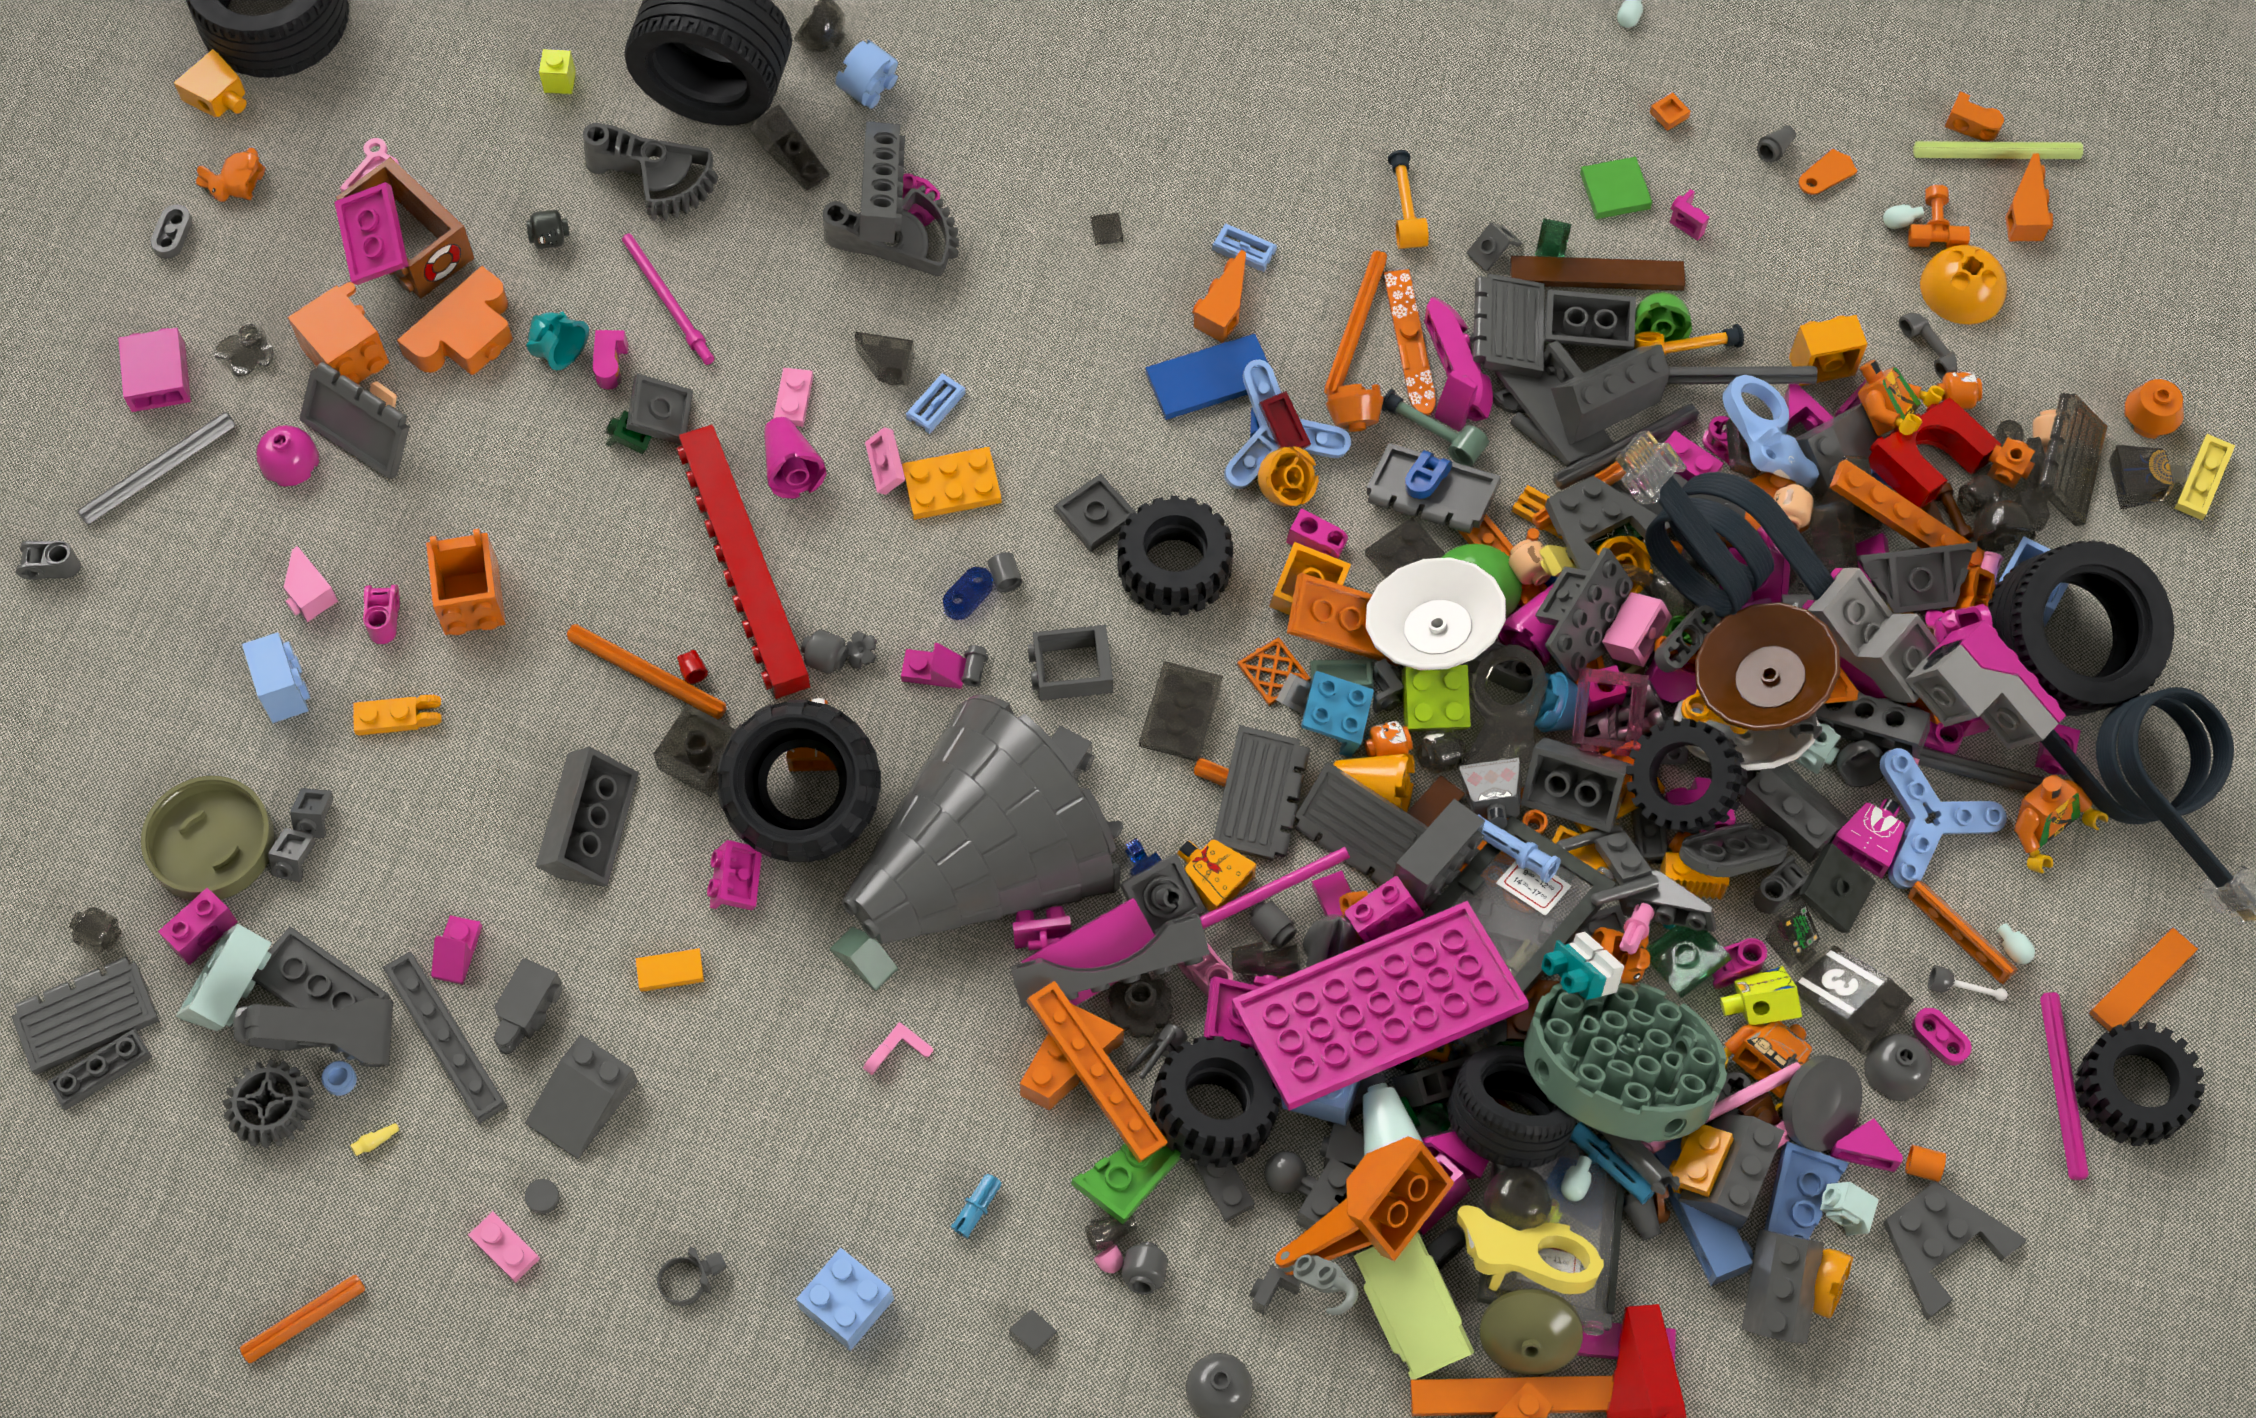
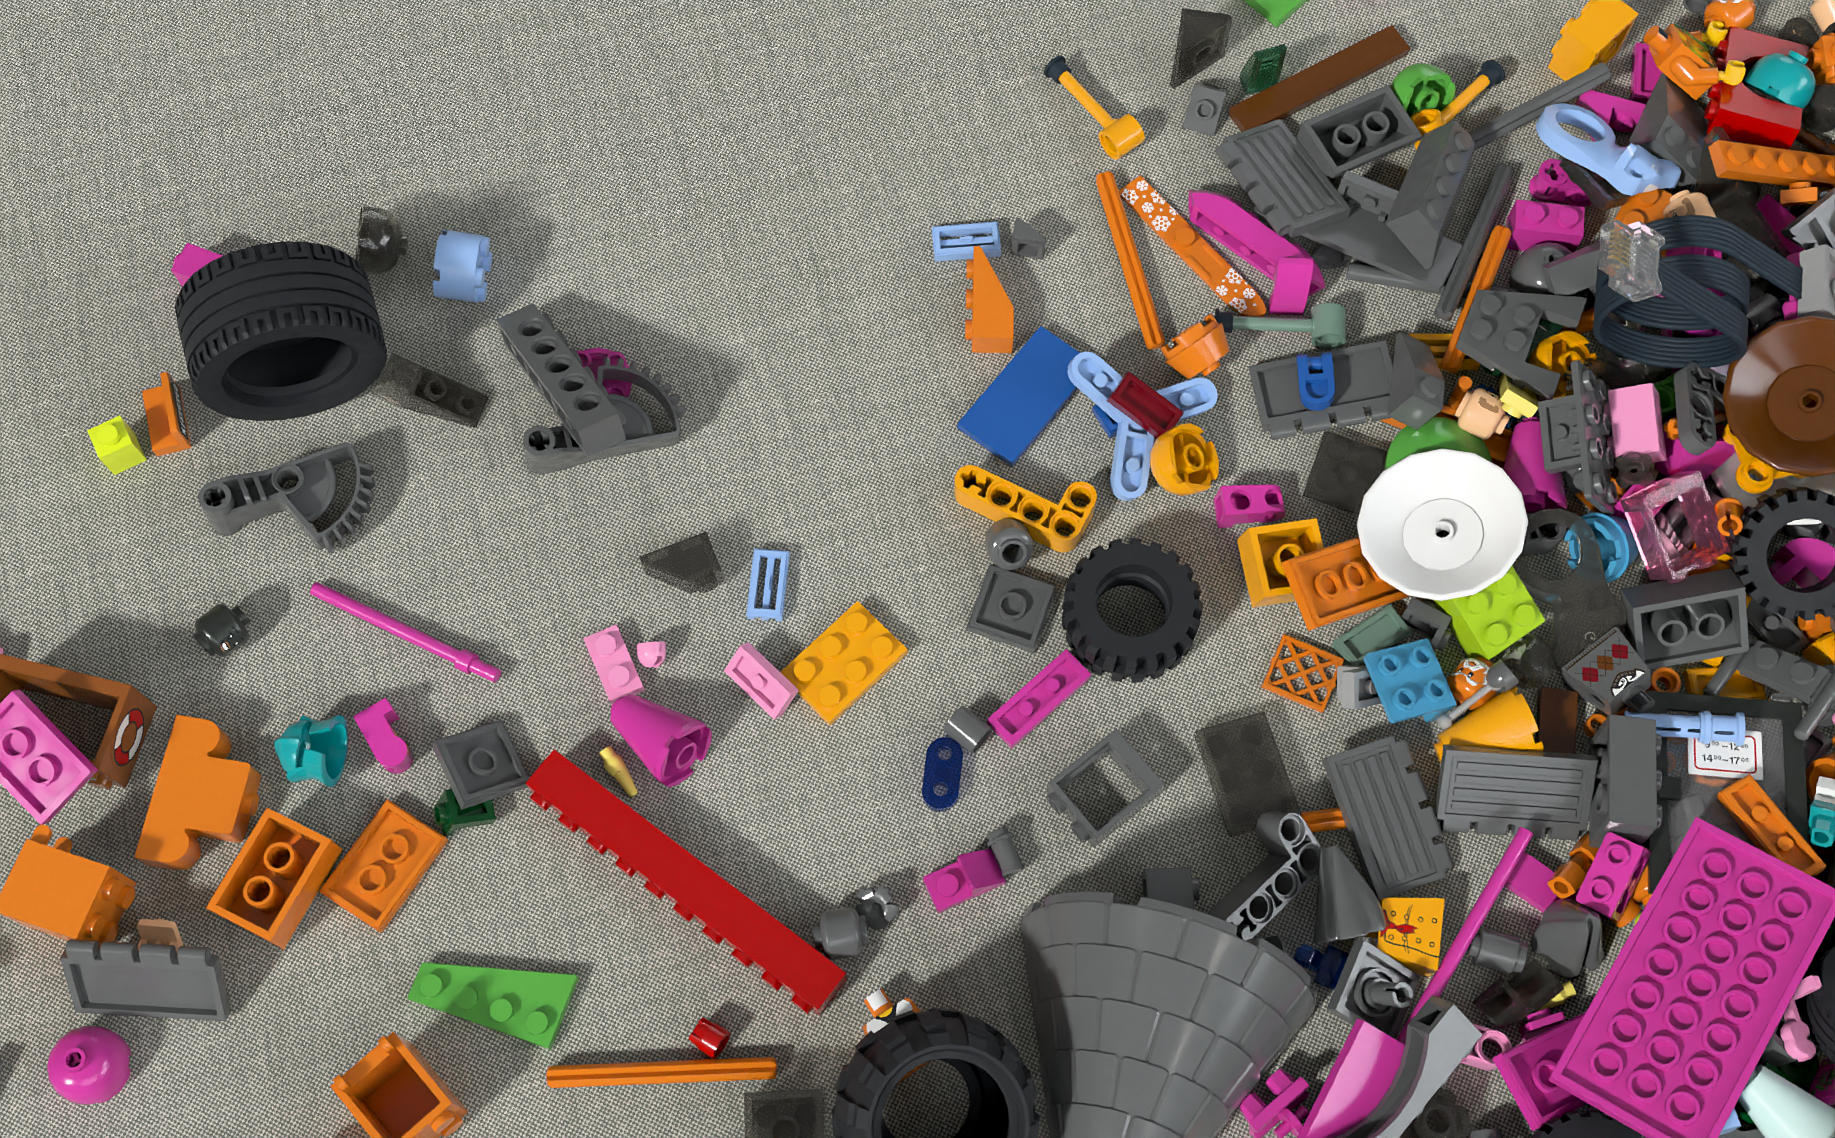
camera: 30 degrees left, 5 degrees up
(477, 404) = (274, 878): none -> orange brick
(553, 440) = (384, 866): none -> orange tile
(574, 568) = (504, 1000): none -> bright green wing
(603, 71) = (166, 417): none -> orange panel
(748, 464) = (617, 768): none -> light yellow piece
(823, 402) = (651, 653): none -> bright pink hinge
(1070, 580) = (1038, 698): none -> dark pink plate
(1106, 228) = (815, 297): clear smoke tile -> none
(1121, 465) = (1009, 544): none -> dark grey head
(1152, 445) = (1023, 501): none -> light orange beam
(1159, 779) = (1276, 879): none -> dark grey beam
(1183, 822) = (1344, 900): none -> dark grey hat
(1285, 269) = (1027, 241): none -> dark grey slope
(1402, 741) = (1498, 679): none -> hinge
(1437, 1085) = (1795, 1031): none -> bright pink piece
(1495, 512) = (1415, 383): none -> dark grey slope
(1513, 195) = (1199, 43): none -> clear smoke slope
(1520, 942) = (1768, 825): none -> orange tile
(1614, 653) = (1634, 461): none -> clear smoke plate
(1643, 722) = (1731, 520): none -> orange pin
(1896, 540) = (1799, 194): none -> orange plate
(1954, 454) = (1783, 78): none -> teal cylinder

